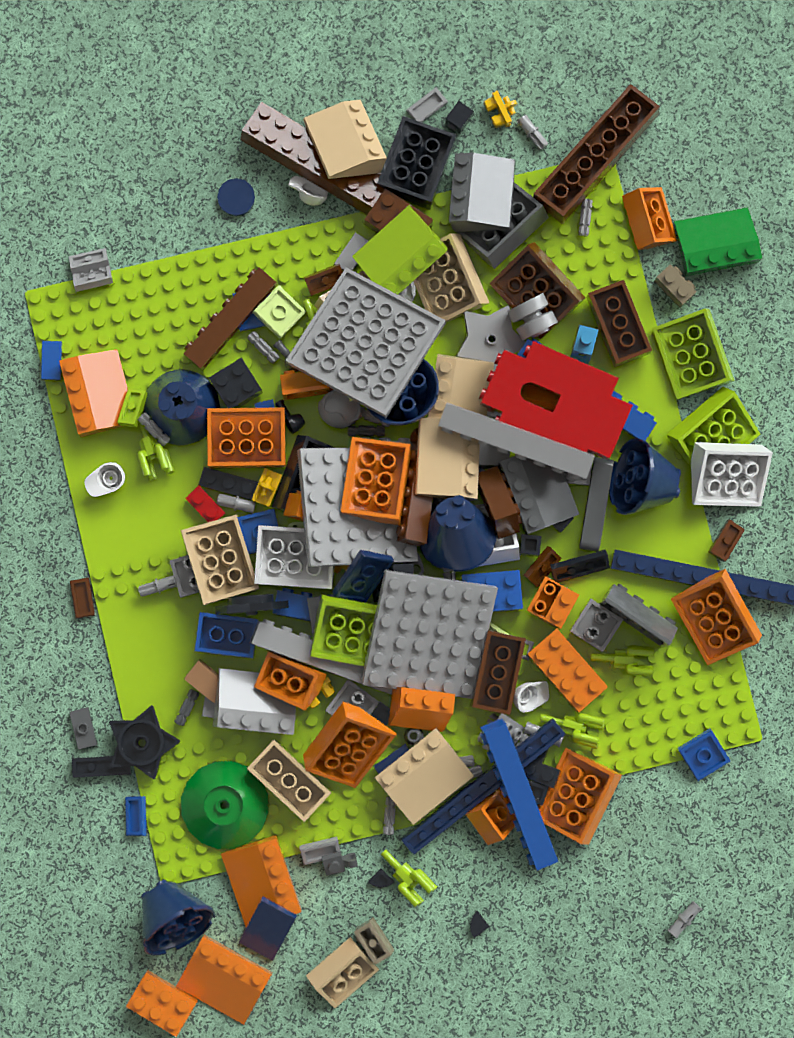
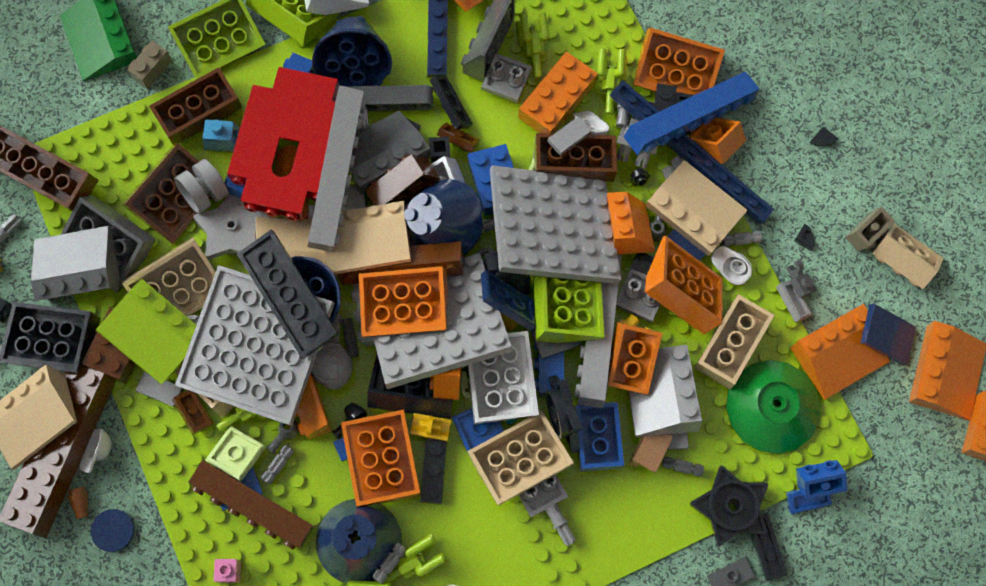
camera: 100 degrees left, 10 degrees down
(147, 827) = (821, 479): none -> blue brick
(172, 918) = (905, 435): dark blue cone -> none
(177, 290) = (227, 571): none -> bright pink brick
(205, 505) = (462, 492): red plate -> none
(236, 384) = (324, 484): black brick -> none
(236, 503) = (453, 458): light grey axle -> none
(267, 171) = (79, 501): none -> dark orange cone
(362, 799) = (728, 264): none -> white cap
(400, 376) = (287, 294): none -> black plate
(409, 879) = (799, 208): lime plant -> none
(468, 731) = (639, 177): none -> black plate
(515, 669) = (569, 136): none -> light grey tile
(552, 603) = (494, 117): orange slope -> none
(585, 217) = (90, 161): light grey axle -> none
(649, 217) = (82, 103): orange slope -> none

